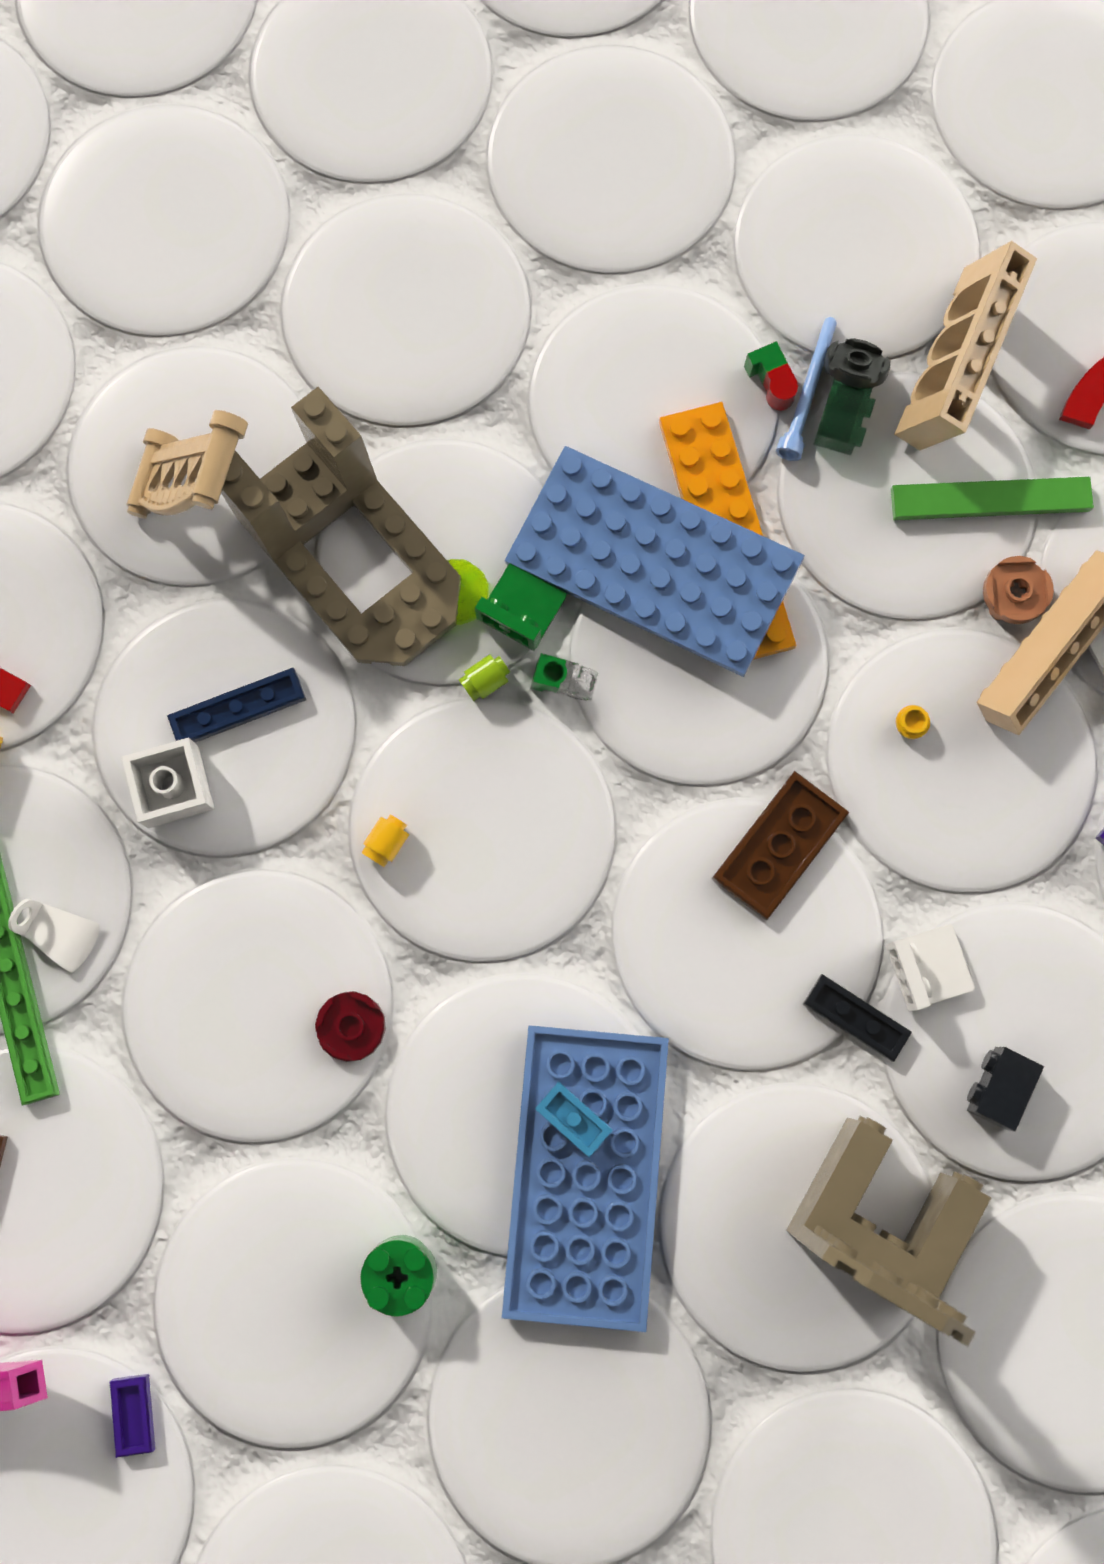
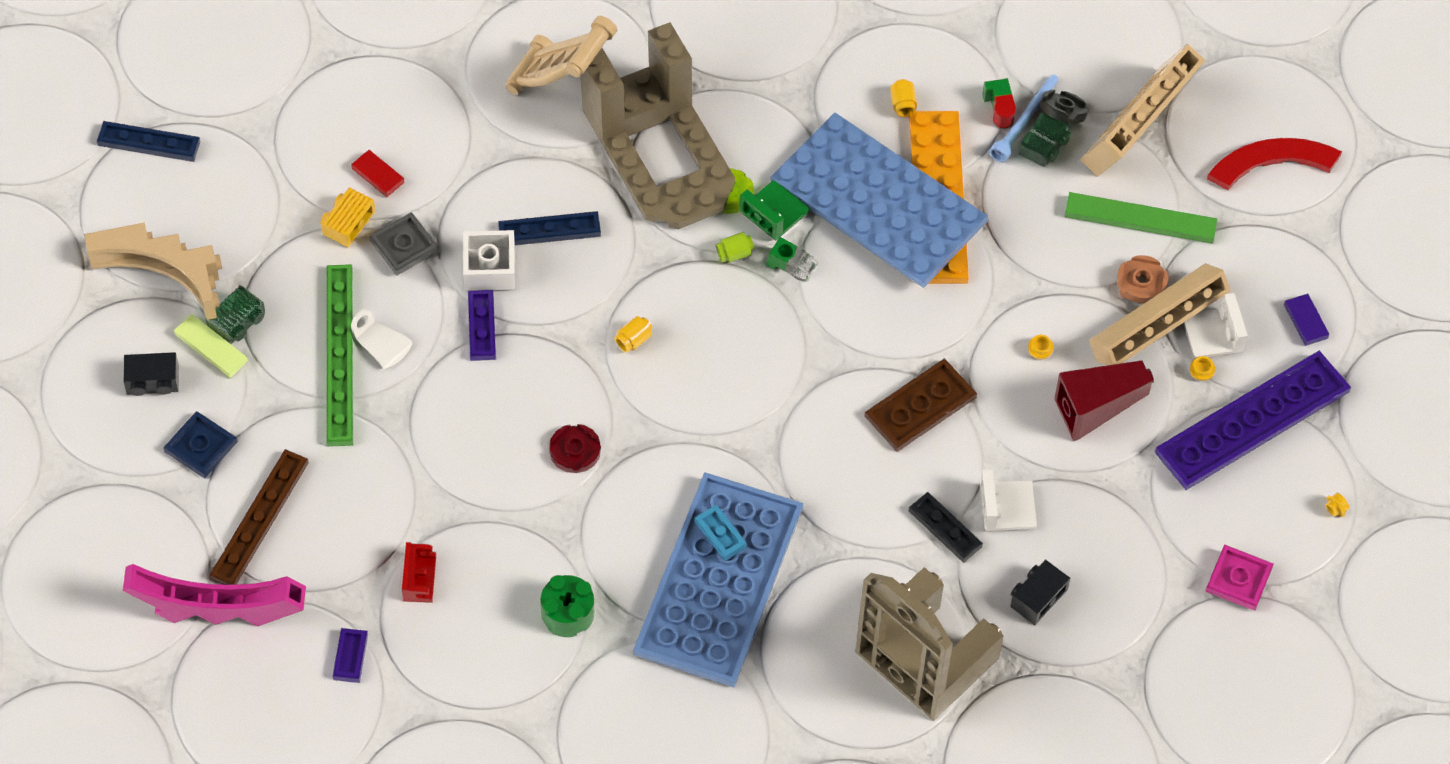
camera: 10 degrees right, 20 degrees down
(51, 781) = (404, 243): none -> dark grey plate
(183, 874) = (481, 325): none -> dark purple tile
(191, 1273) = (418, 573): none -> red hinge
(647, 400) = (903, 97): none -> yellow brick
(1007, 785) = (1099, 393): none -> dark red slope

